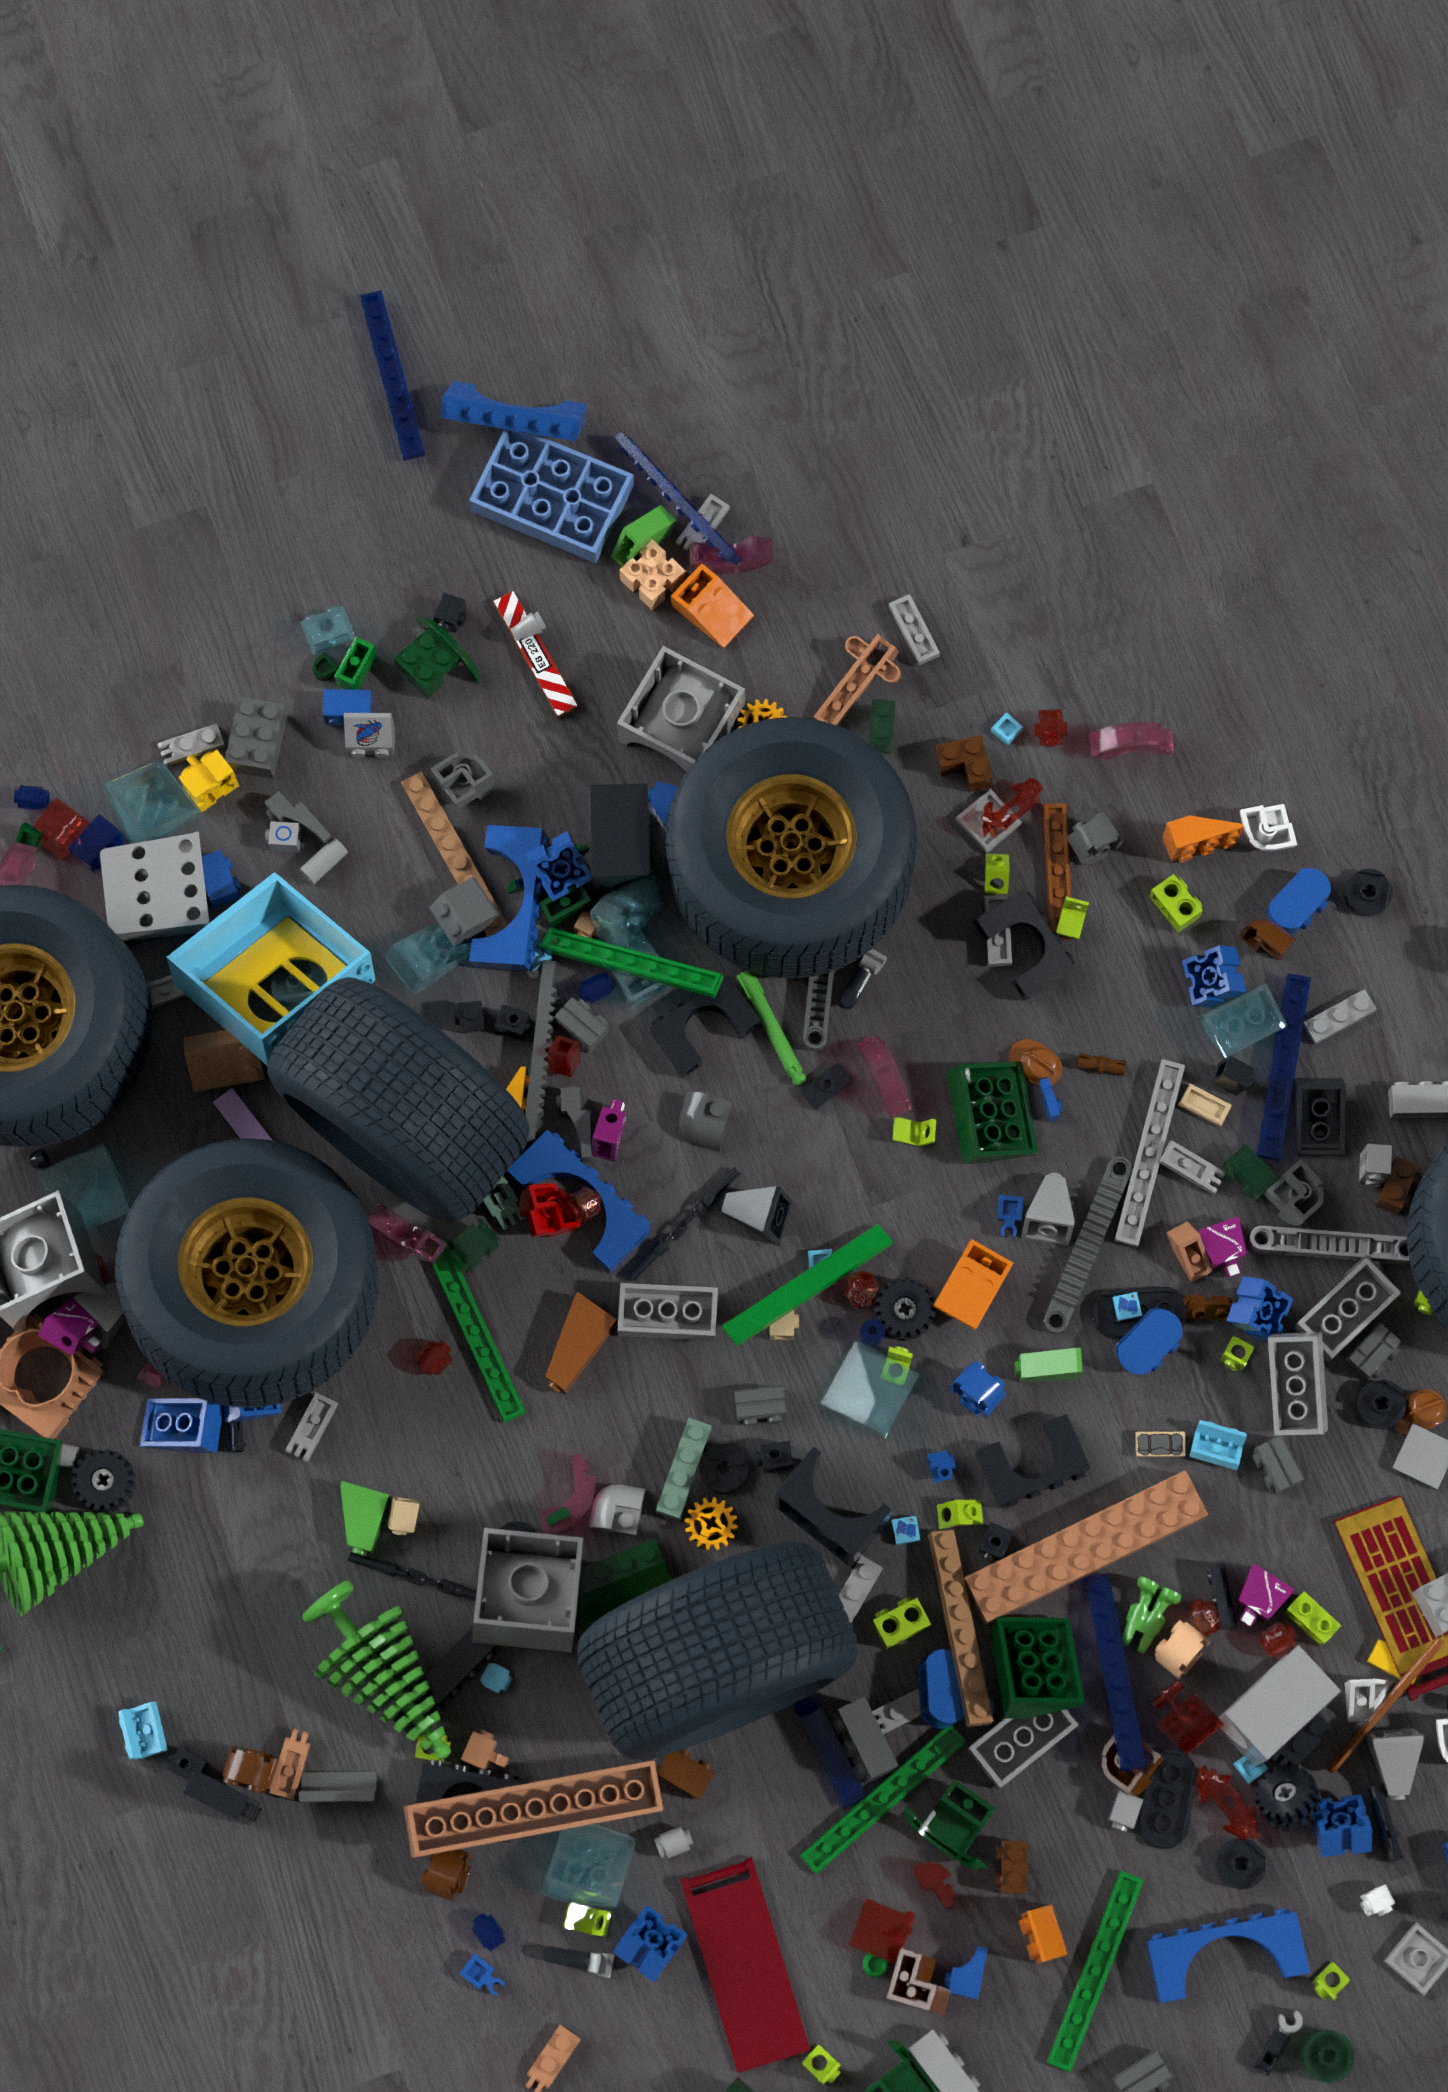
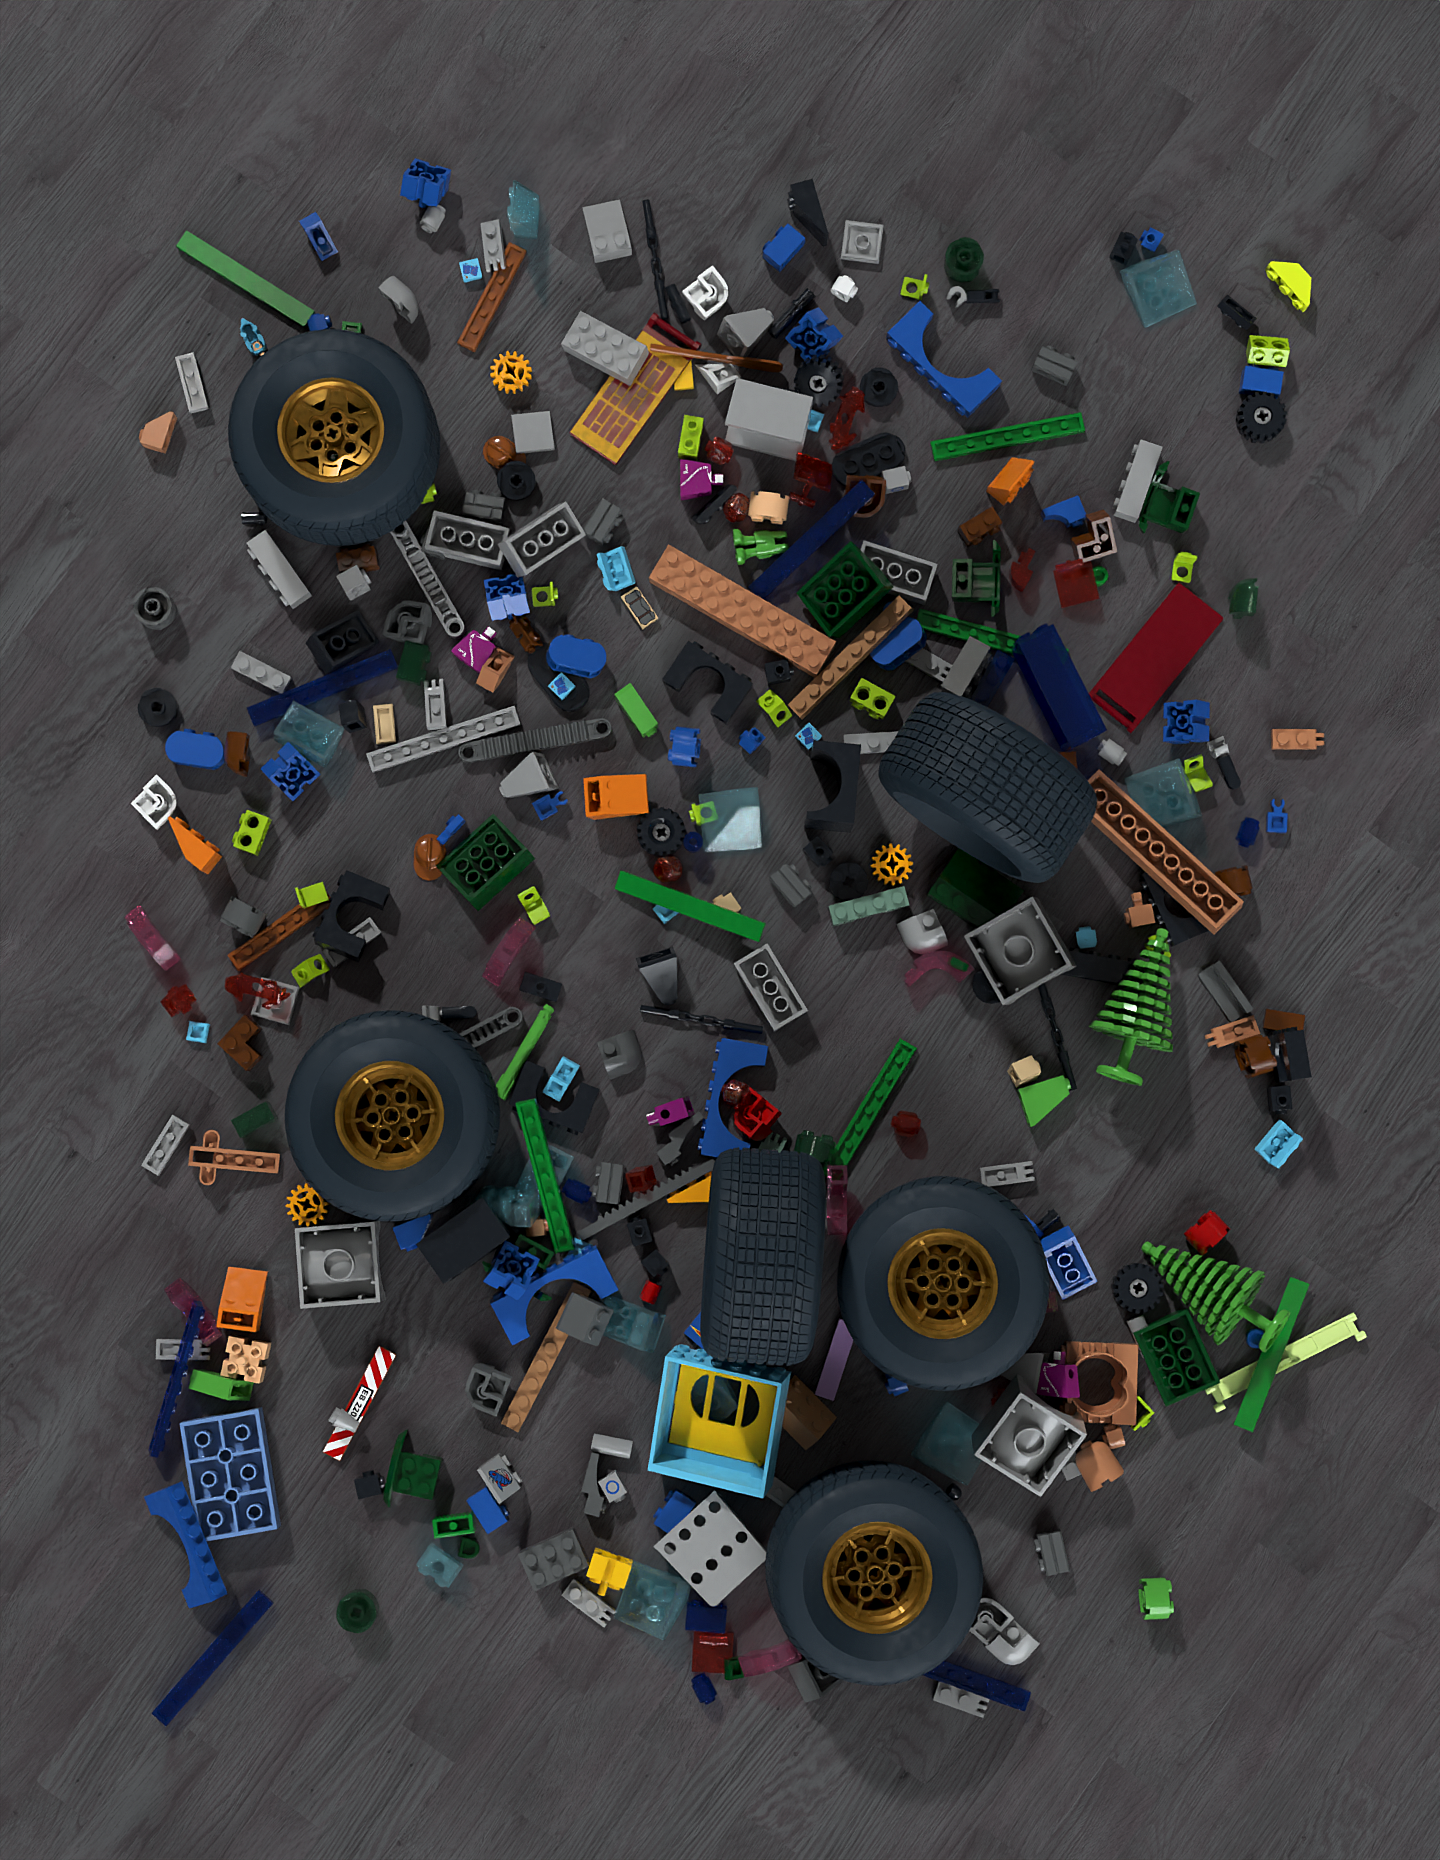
camera: 125 degrees left, 10 degrees up
(106, 1589) = (1207, 1232): none -> red brick
(262, 1832) = (1280, 1020): none -> reddish brown tile
(329, 521) = (357, 1622): none -> clear green brick
(445, 994) = (650, 1292): none -> red brick
(579, 1341) = (823, 1035): dark orange slope -> none
(719, 1046) = (561, 1078): none -> medium azure slope
(777, 1819) = (1057, 687): none -> clear blue door
(1101, 1064) = (401, 811): reddish brown pin -> none

